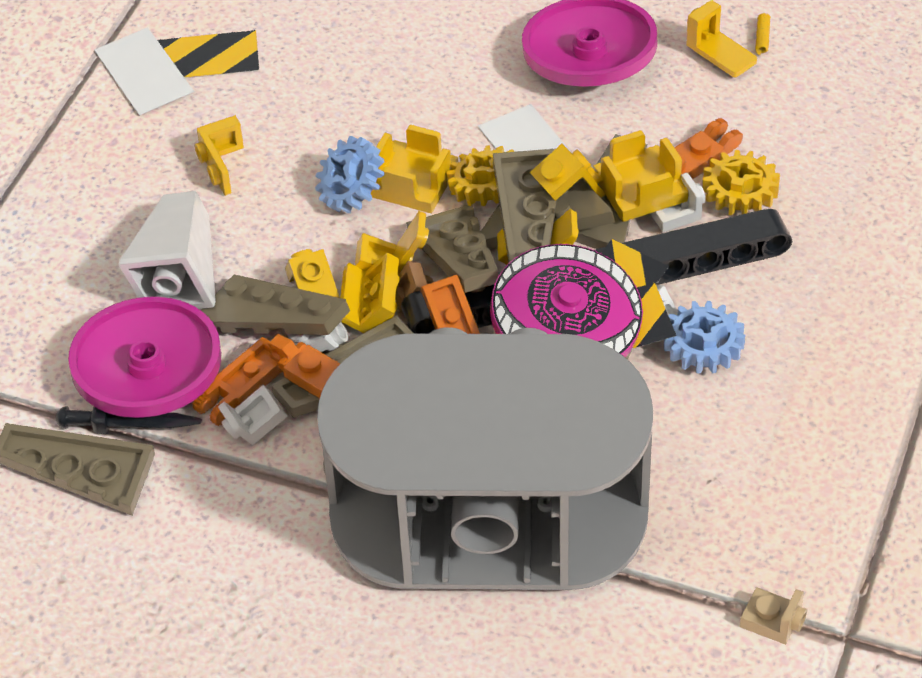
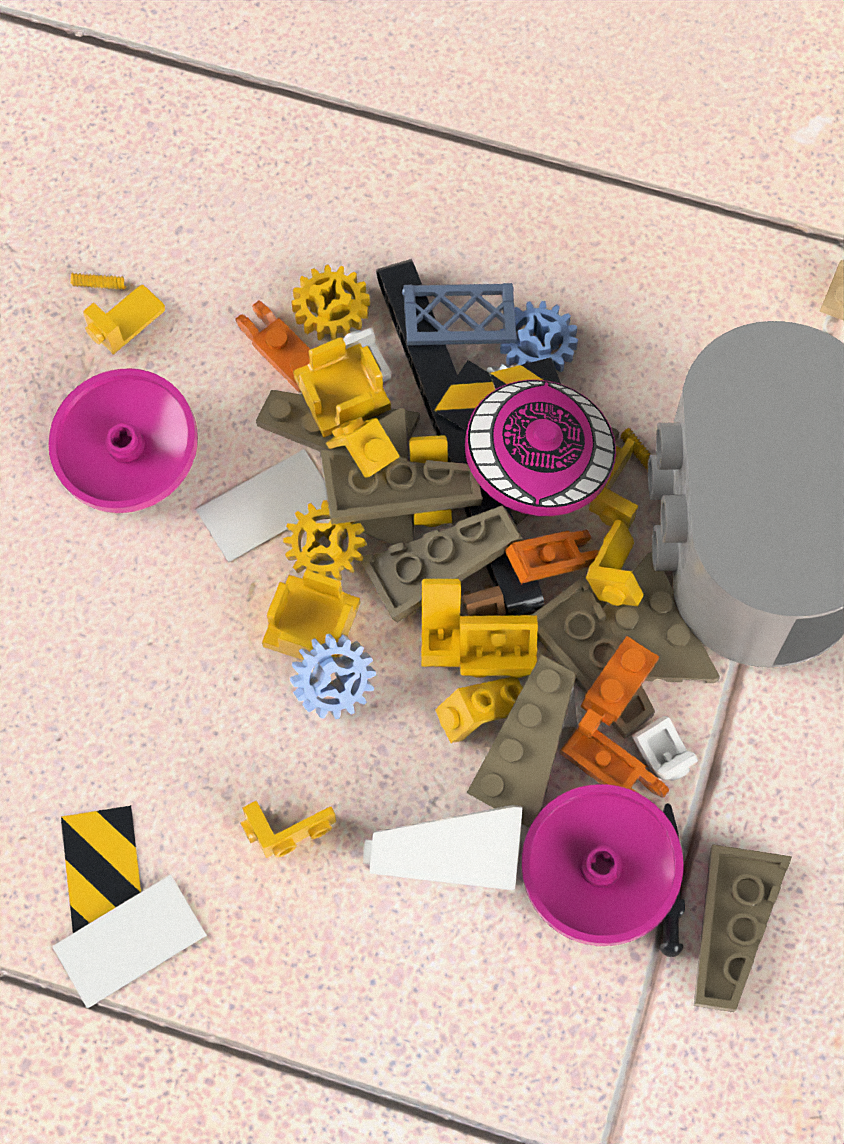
camera: 95 degrees left, 20 degrees up
(726, 299) = (447, 337): none -> sand blue window

